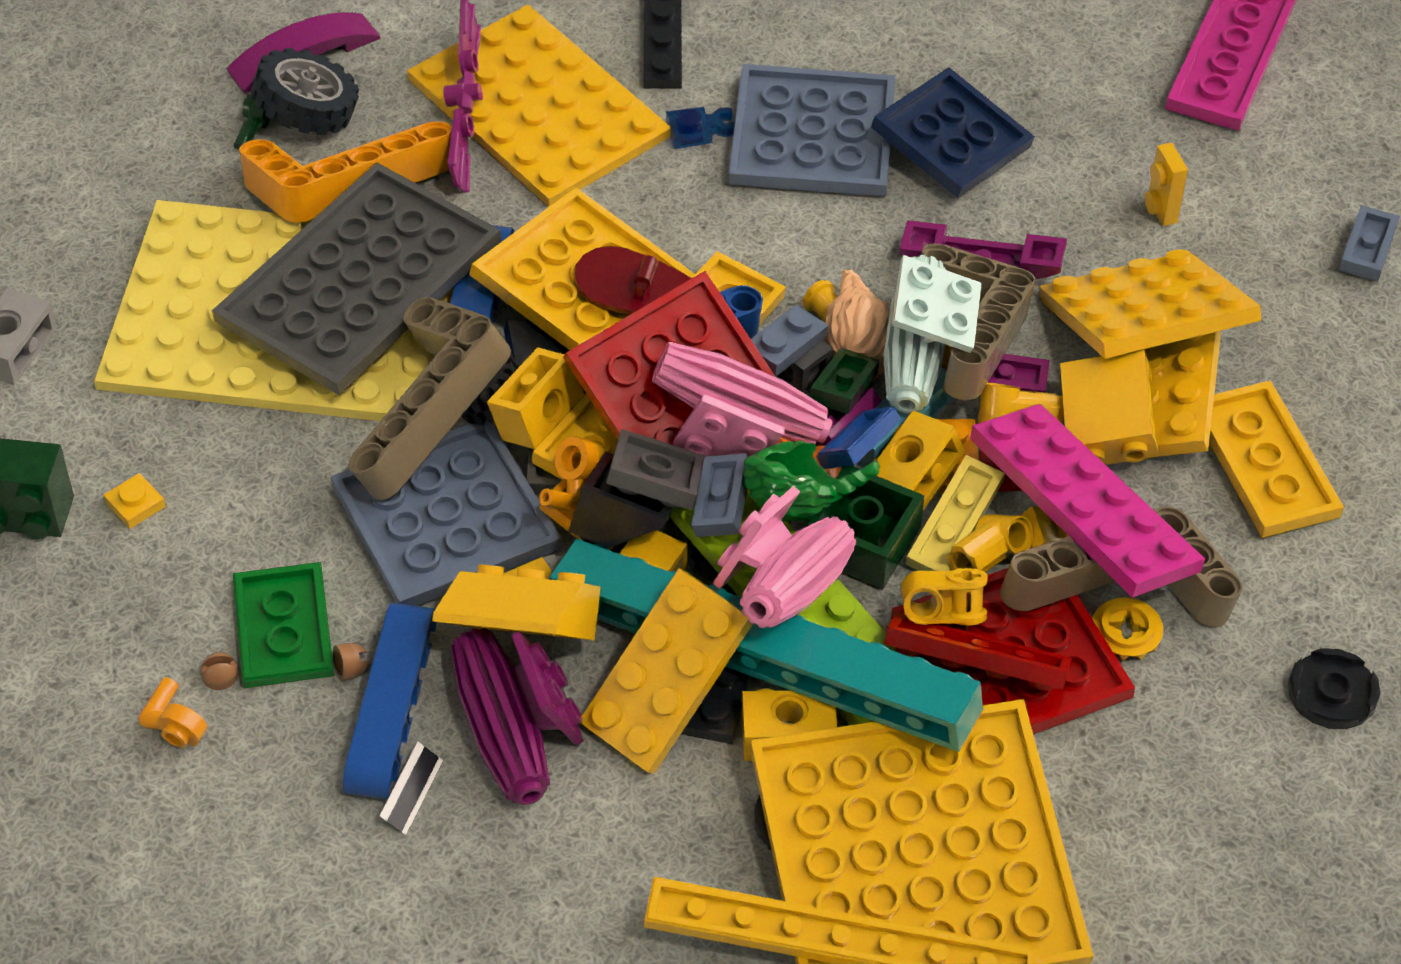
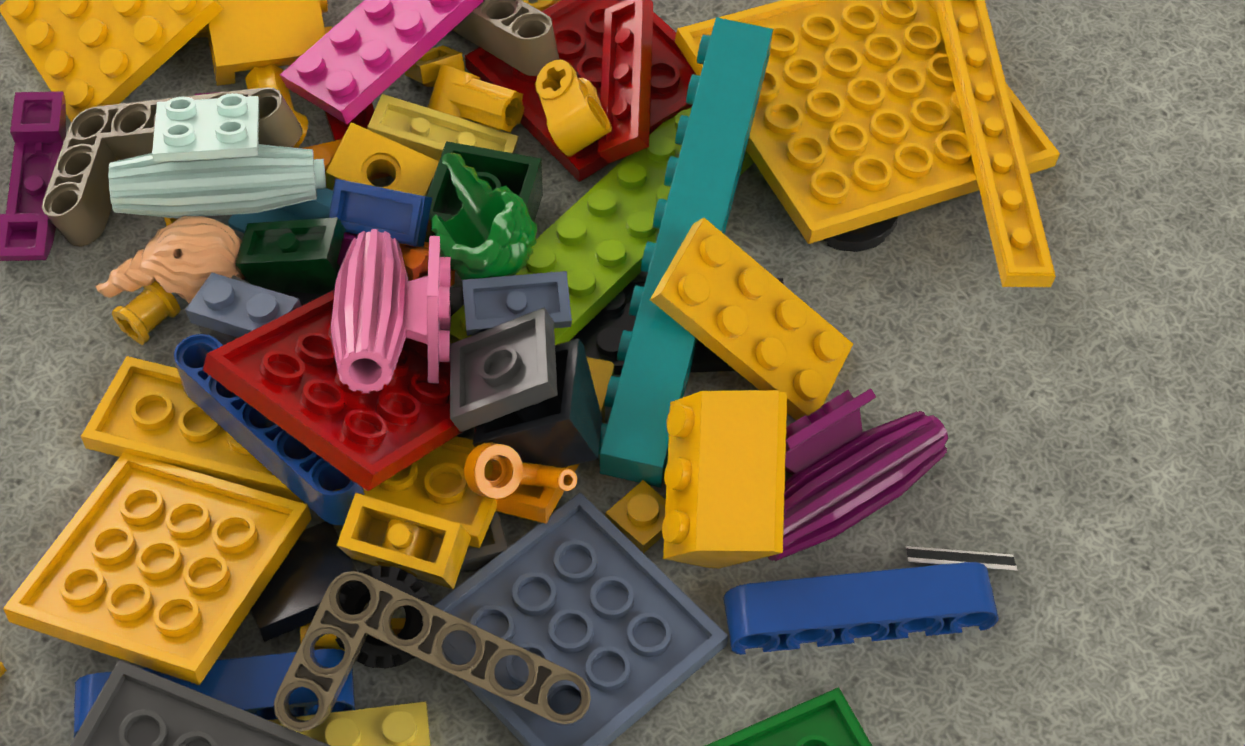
camera: 105 degrees left, 5 degrees up
(348, 657) = (815, 667): medium nougat hinge -> none
(624, 278) = (170, 494): dark red shield -> none
(767, 710) = (763, 226): yellow brick -> none
(789, 567) = (600, 211): bright pink plate -> none

